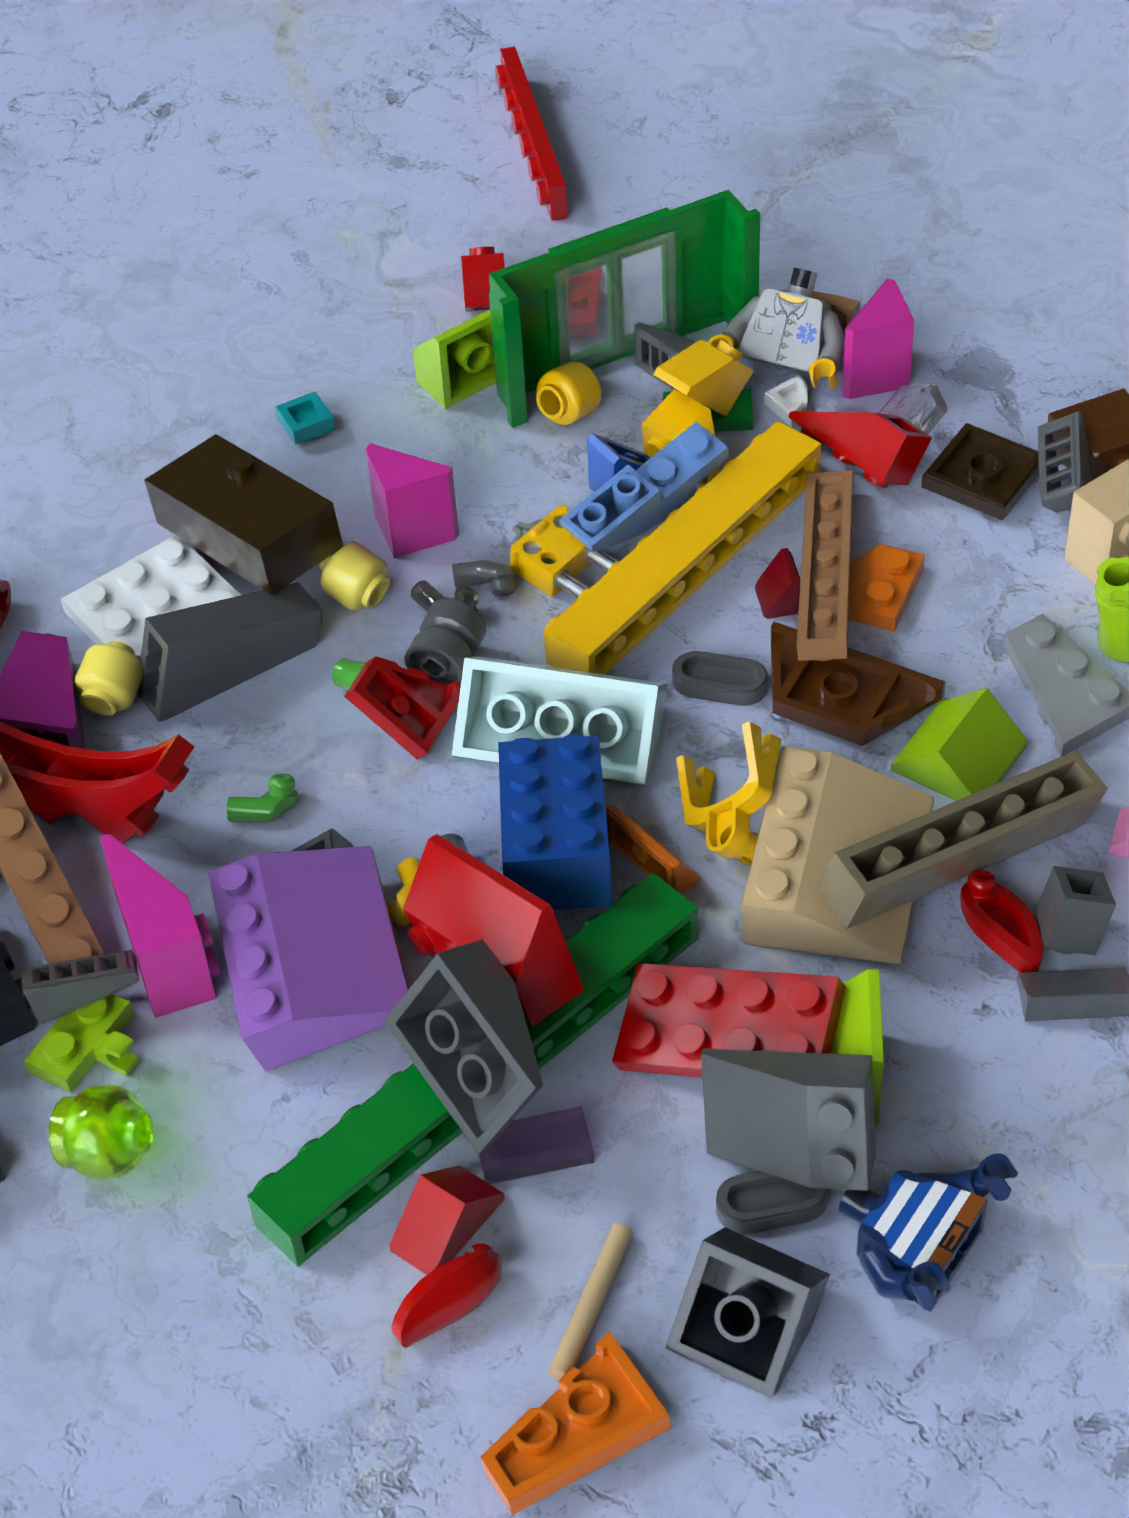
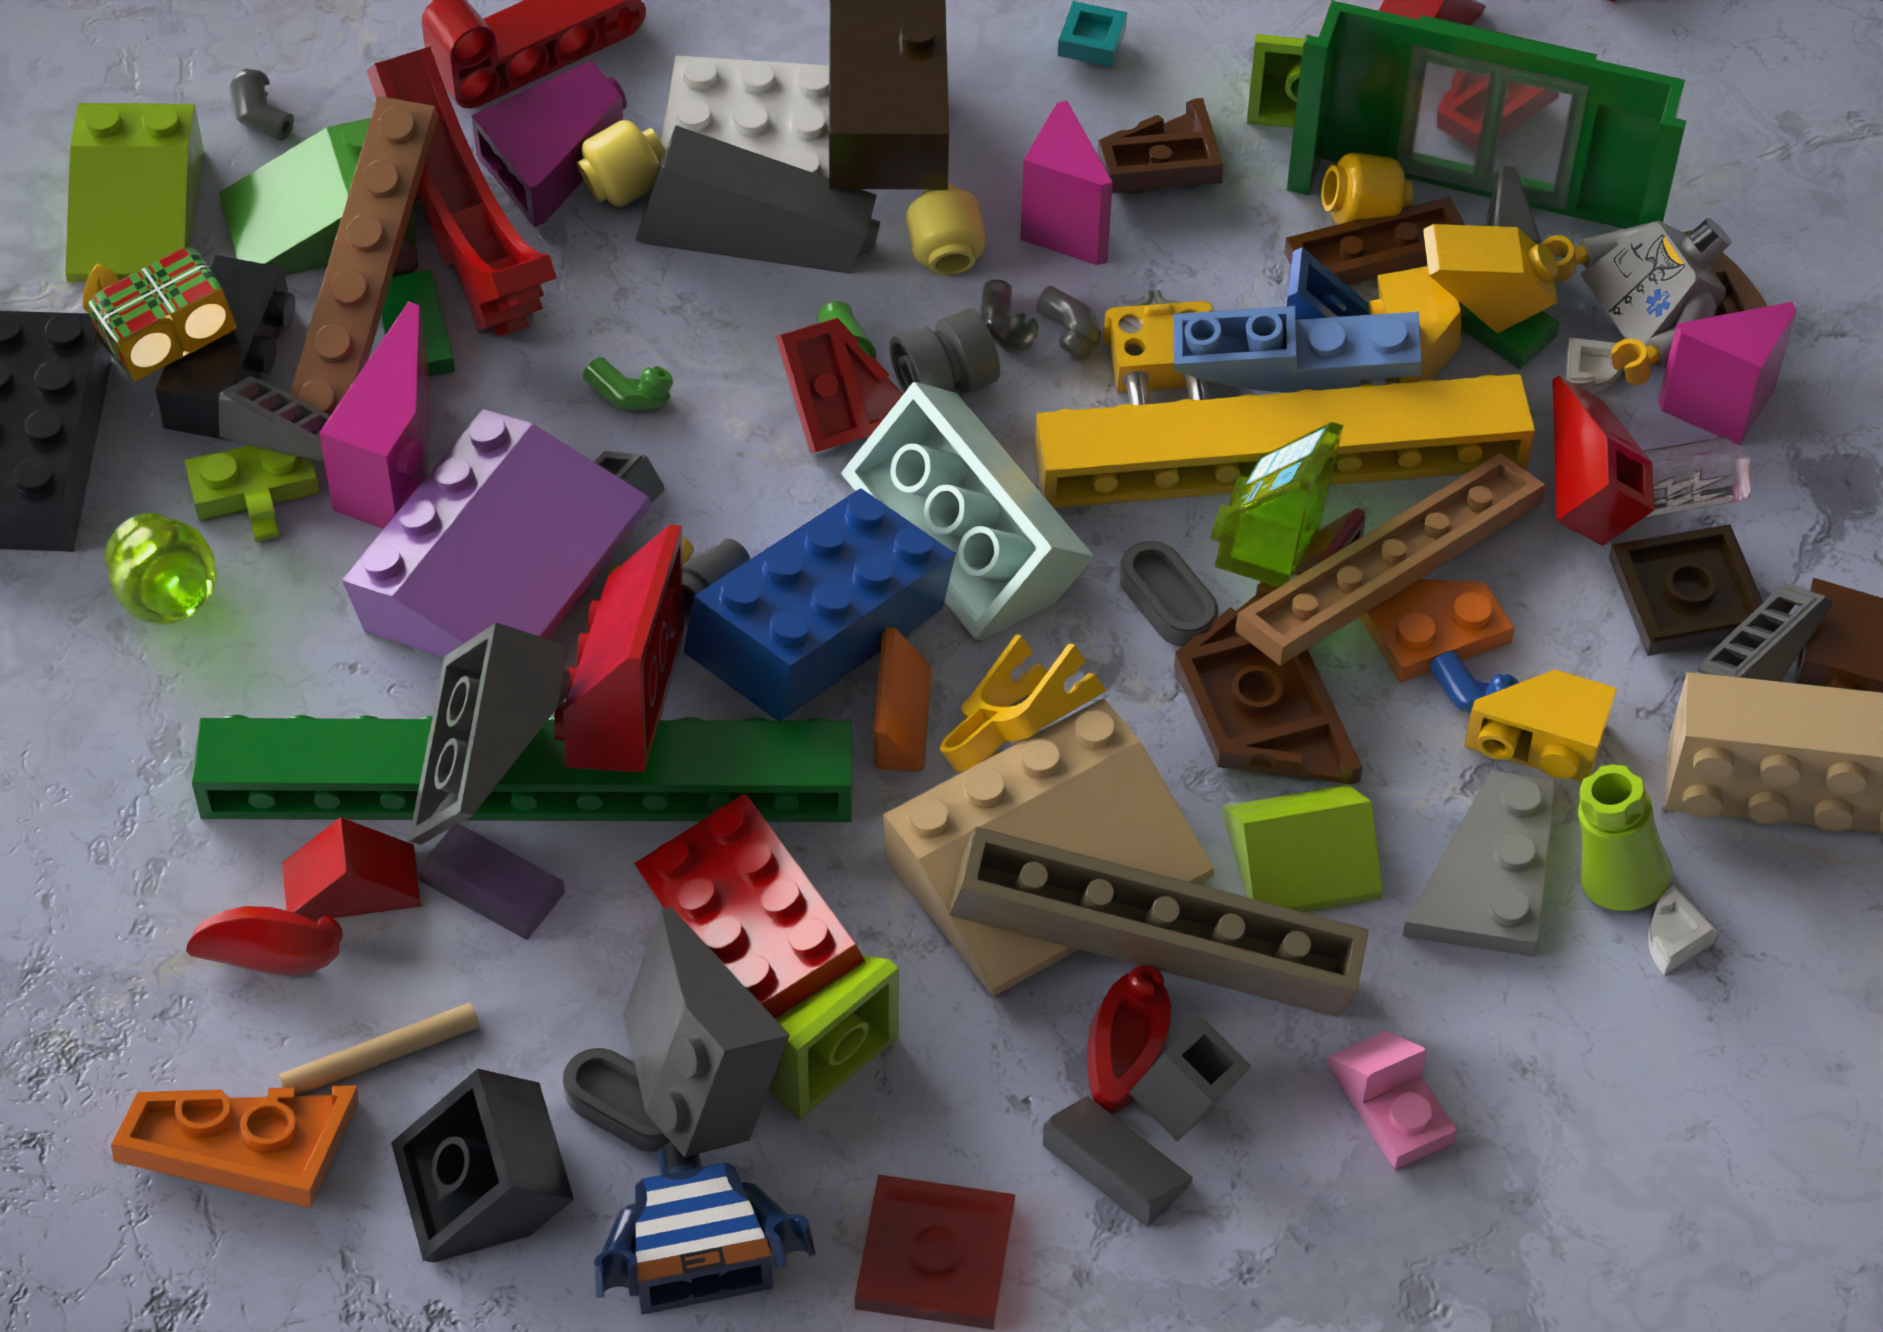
camera: 40 degrees right, 5 degrees up
(83, 869) = (421, 290): none -> green tile
(435, 439) = (1163, 153): none -> reddish brown wing
(609, 414) = (1375, 245): none -> reddish brown plate
(743, 575) = (1277, 508): none -> clear neon green slope
(942, 606) = (1460, 683): none -> blue arm
(1008, 587) = (1544, 723): none -> yellow slope
(1047, 1127) = (935, 1252): none -> clear red tile

